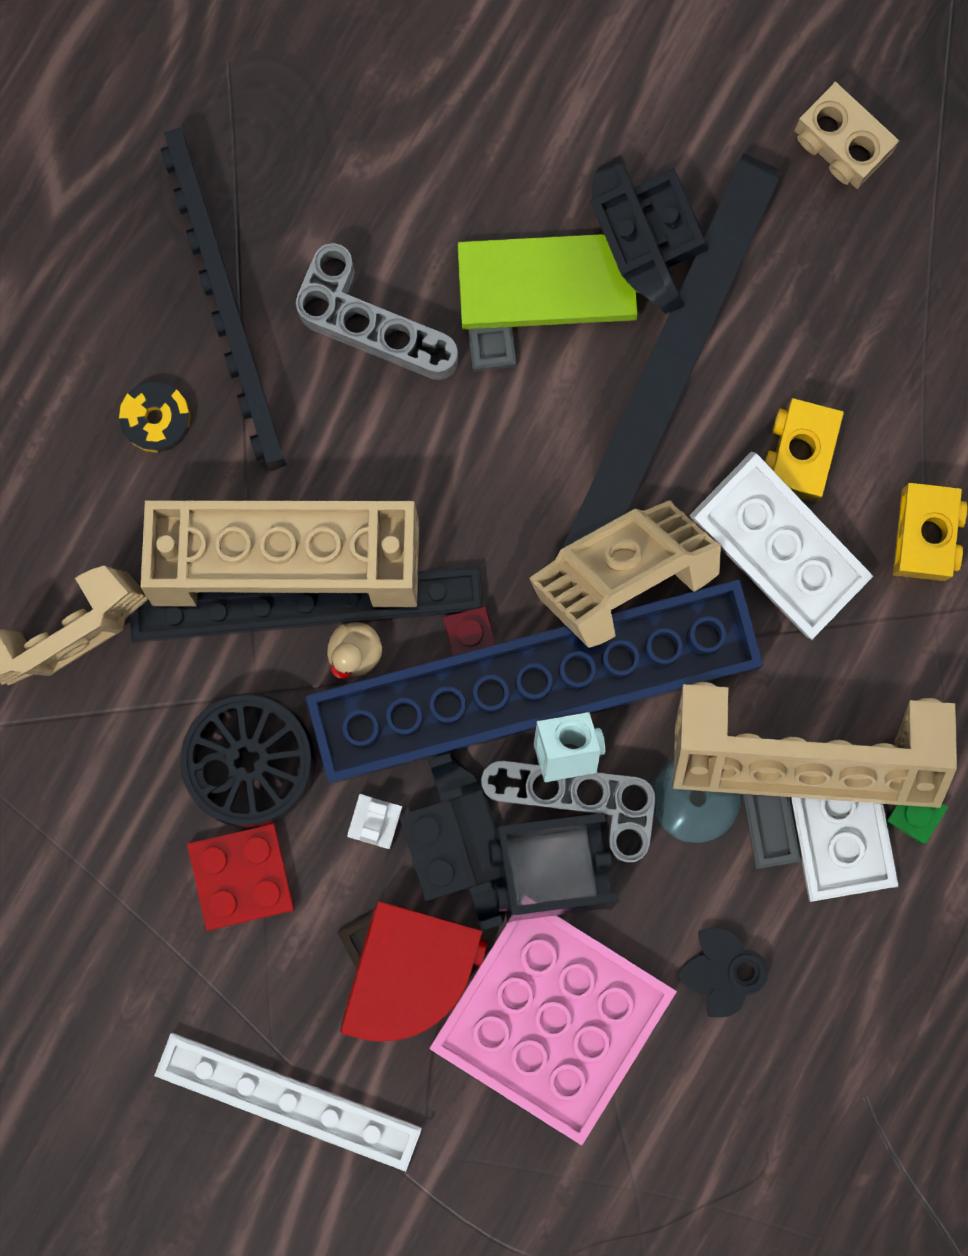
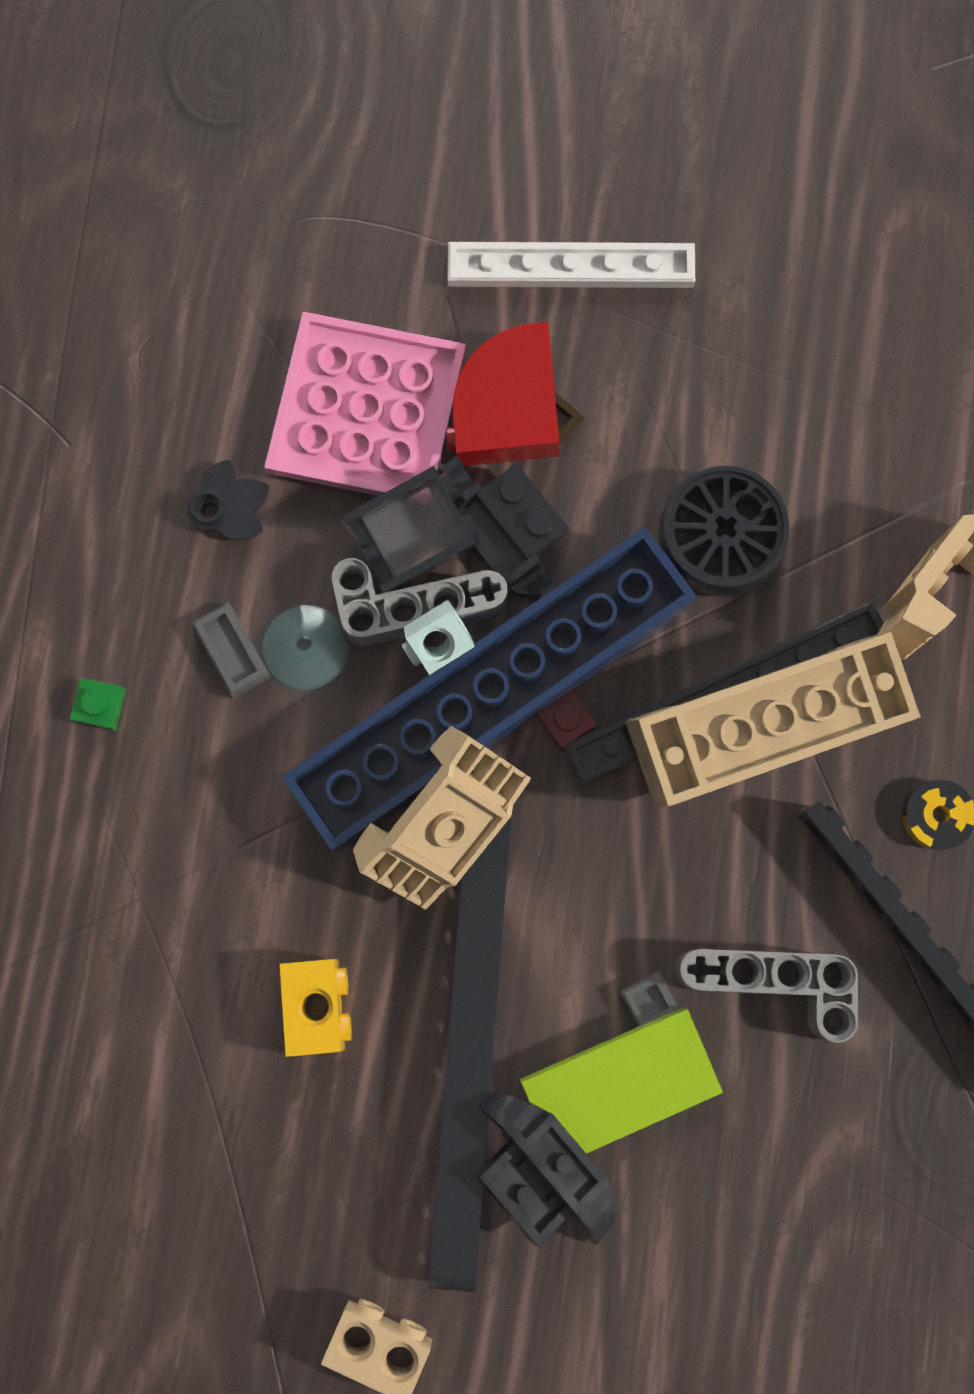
camera: 160 degrees right, 5 degrees down
(240, 877) = (687, 432): red plate -> none
(353, 650) = (668, 660): tan animal -> none
(374, 821) = (588, 522): white tile -> none
(781, 545) = (304, 902): white plate -> none
(843, 847) = (163, 667): white tile -> none
(907, 773) = (103, 736): tan plate -> none
(913, 553) = (185, 989): yellow brick -> none

